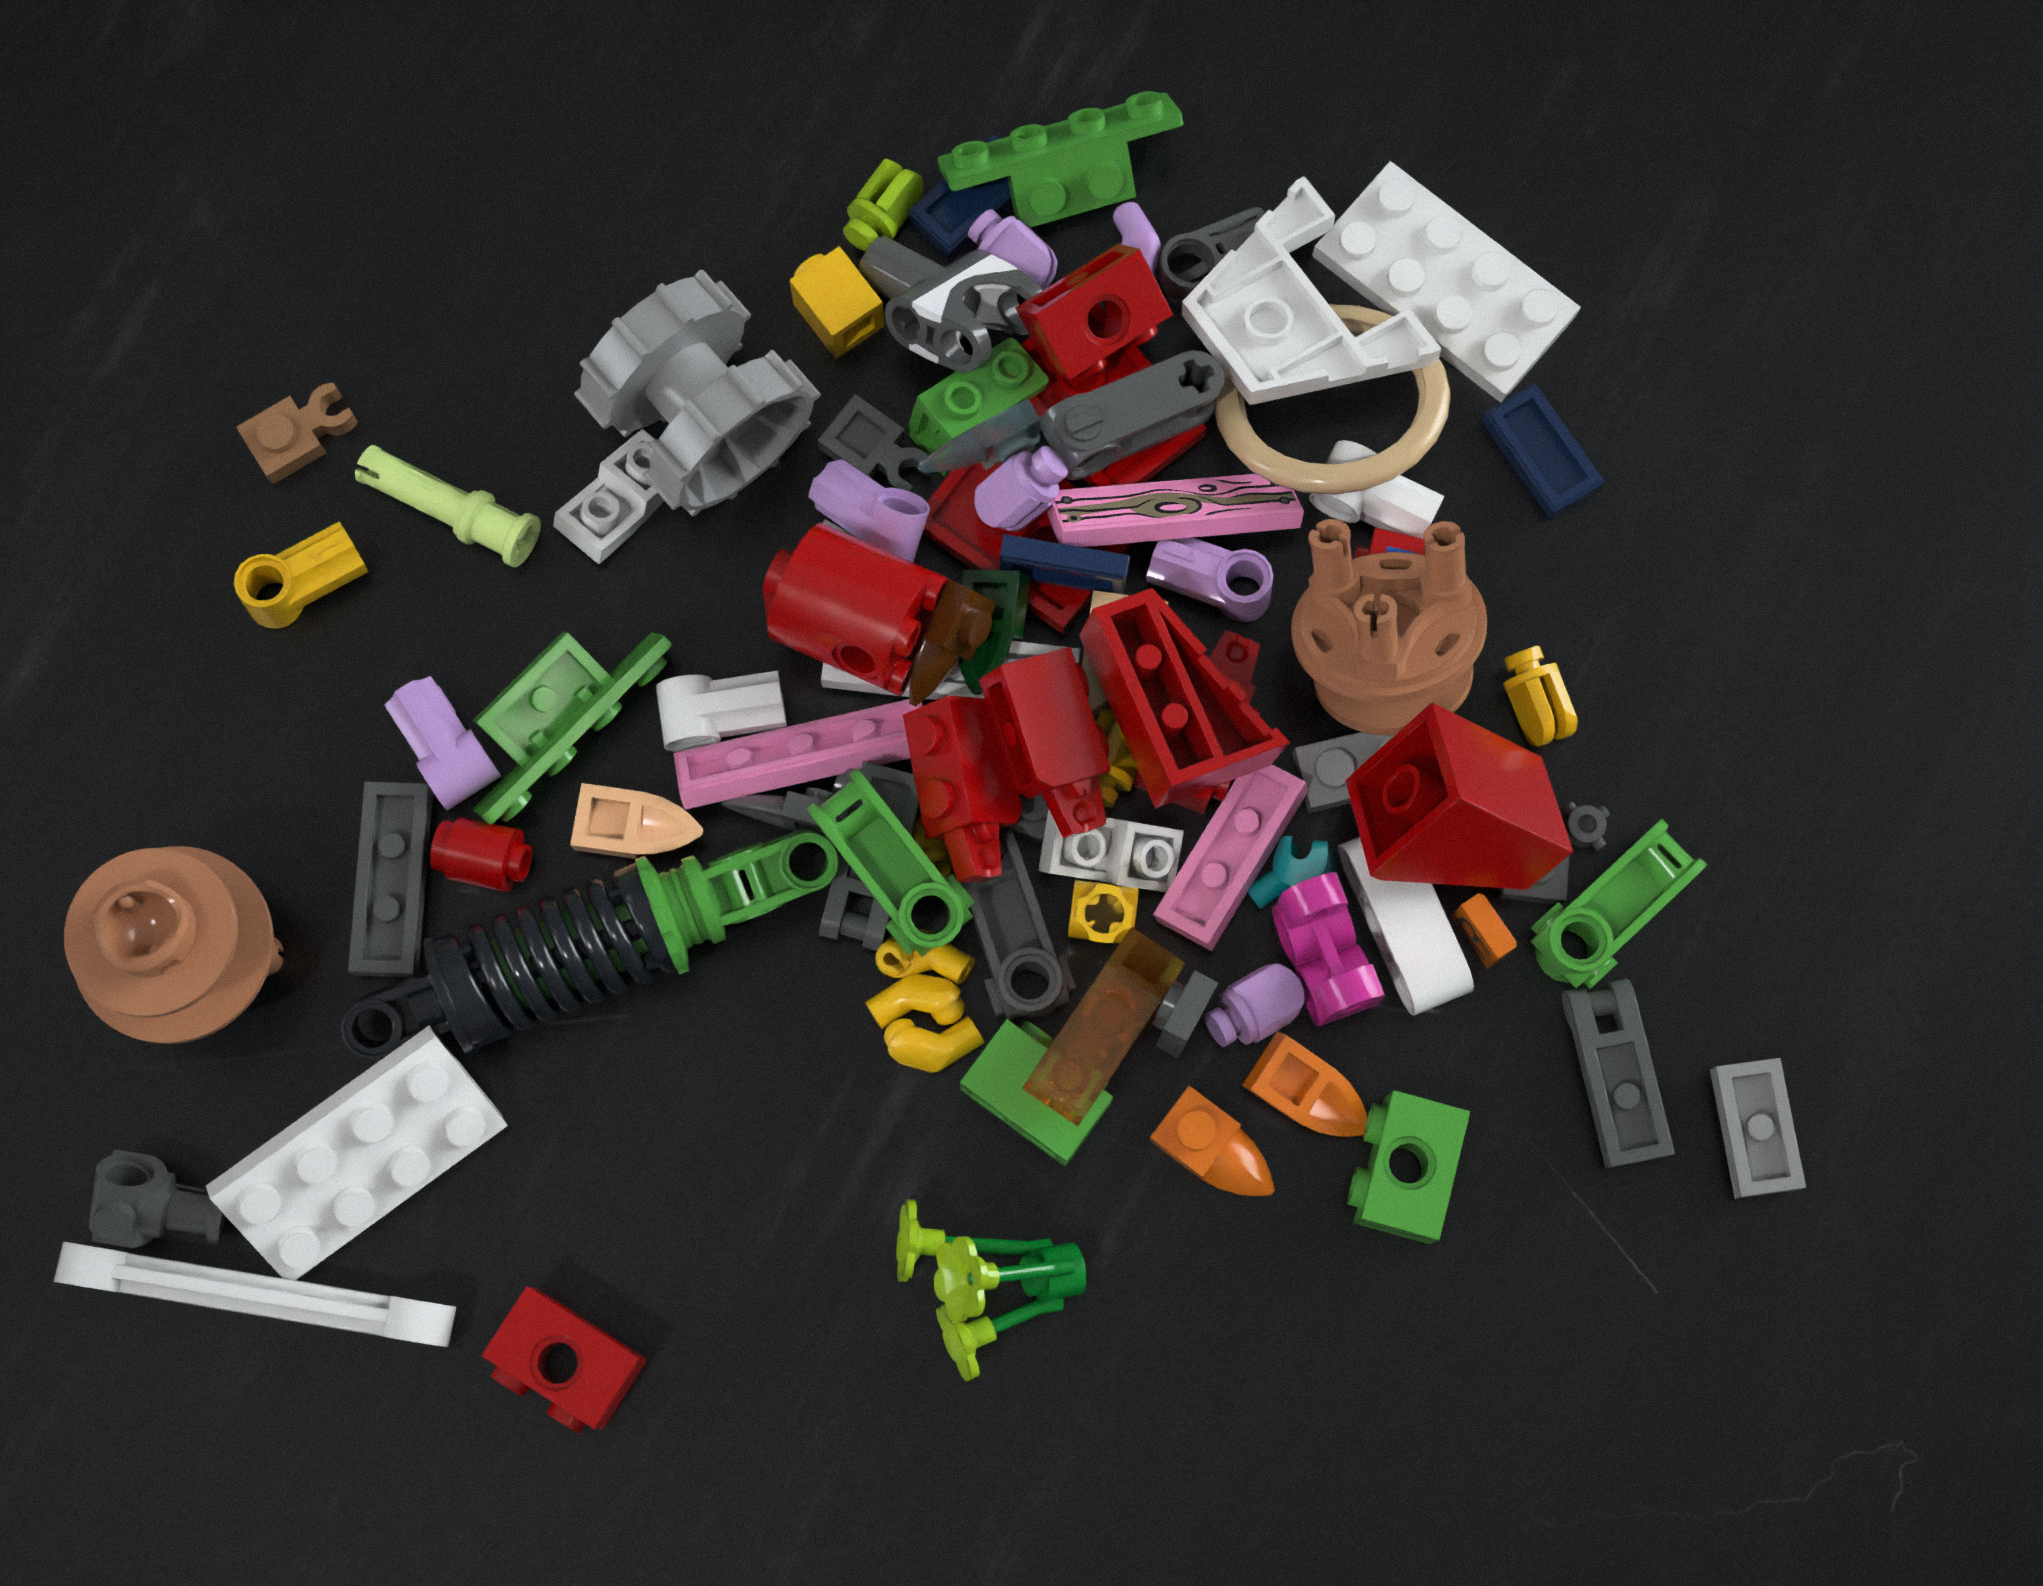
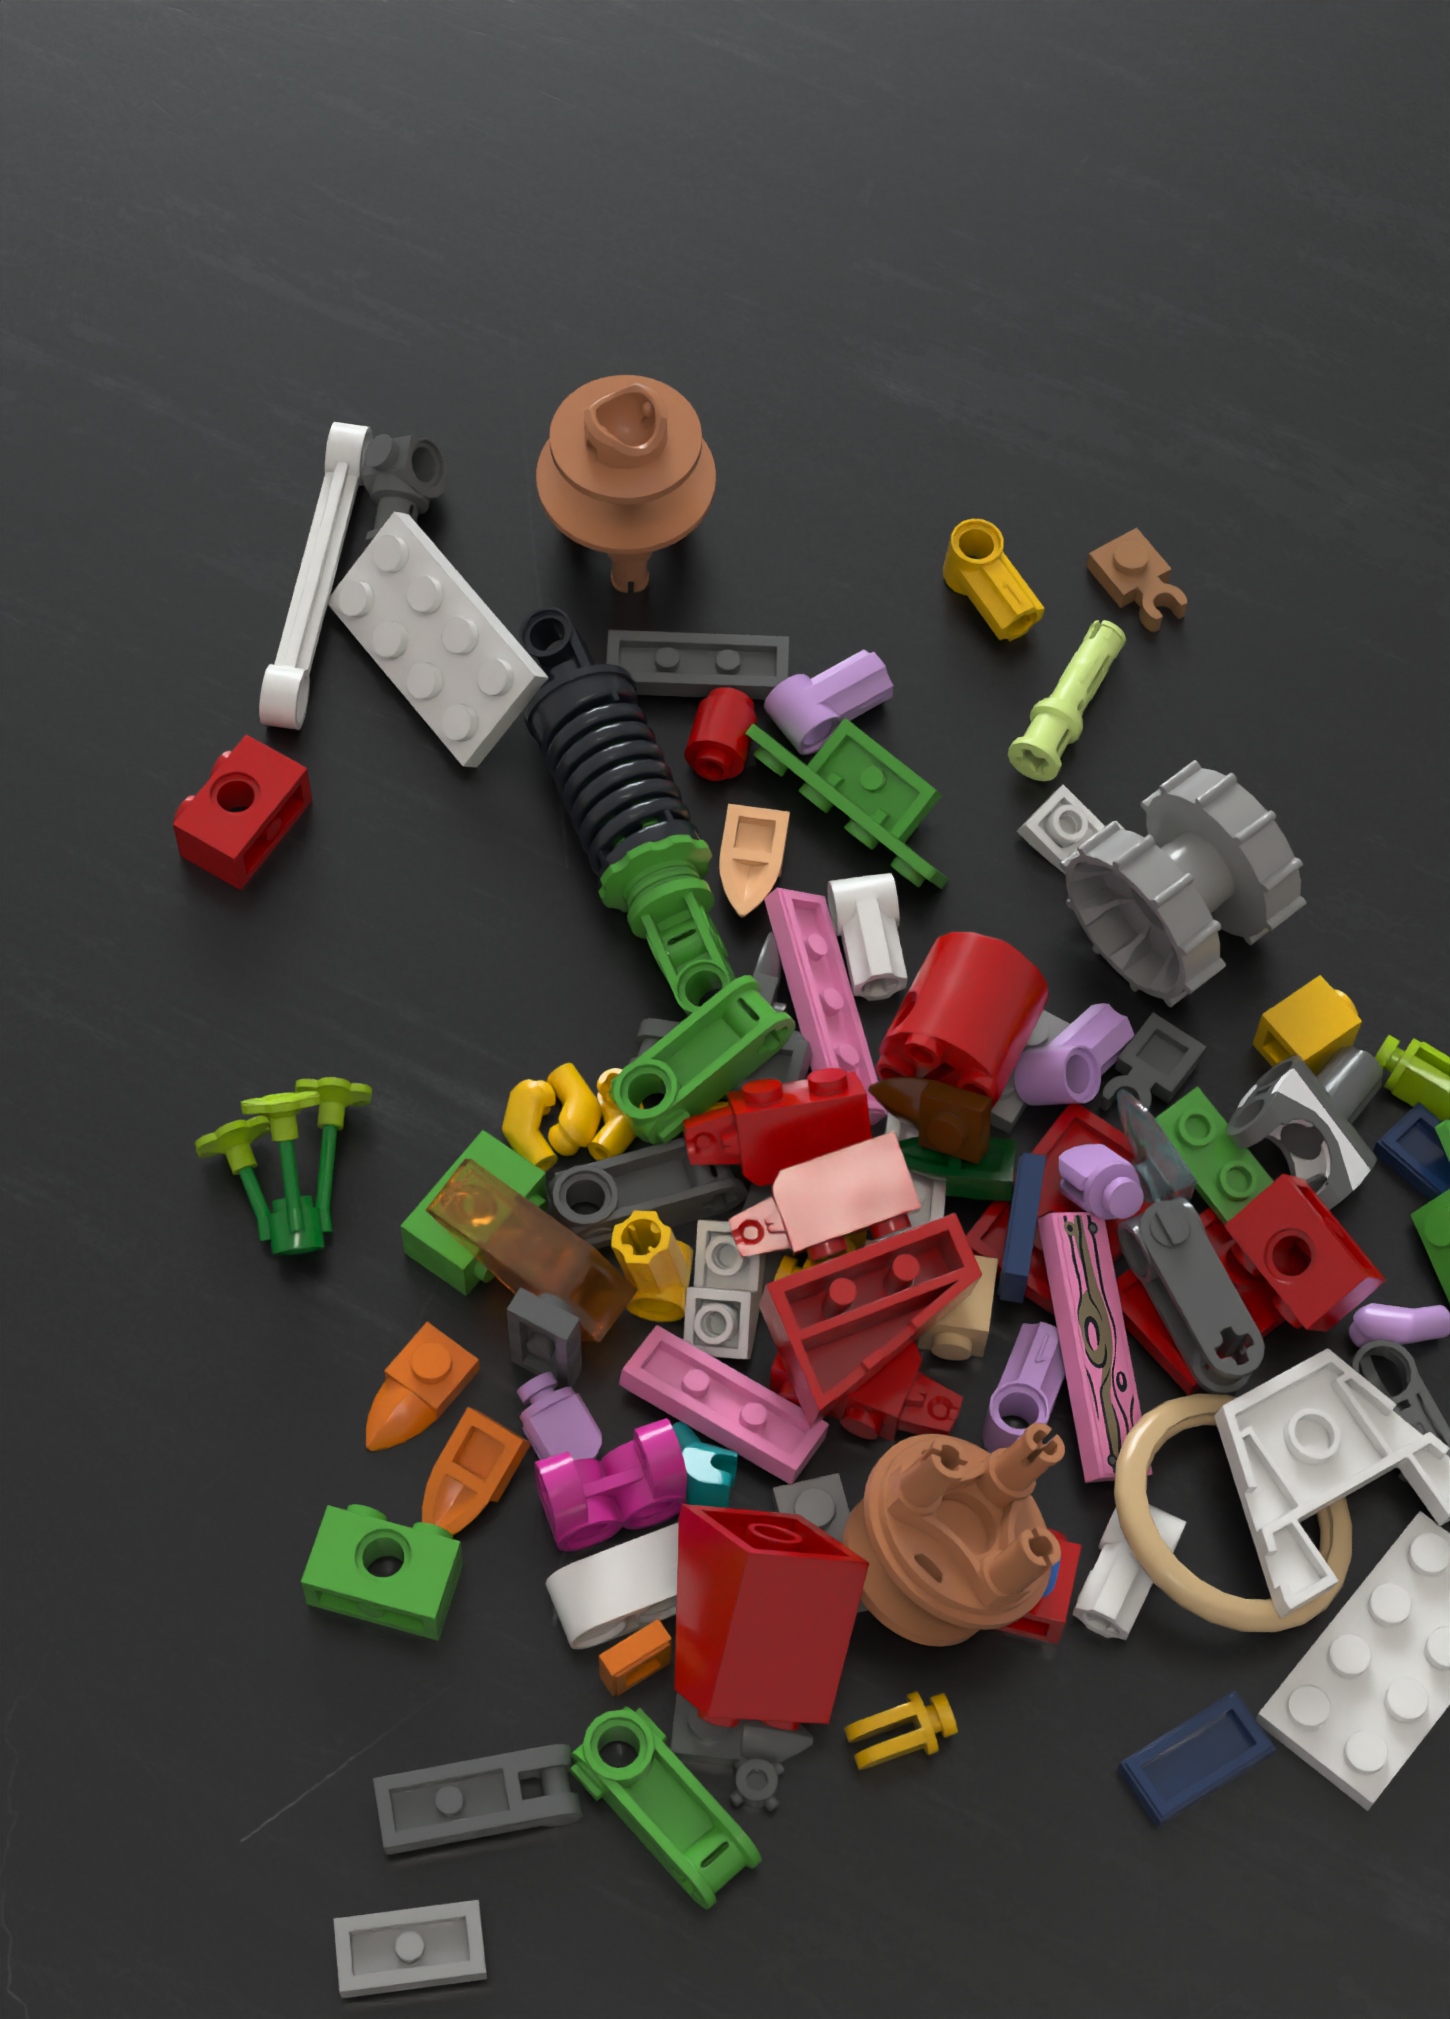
camera: 90 degrees right, 15 degrees down
(1015, 244) = (1382, 1201): lavender arm -> none

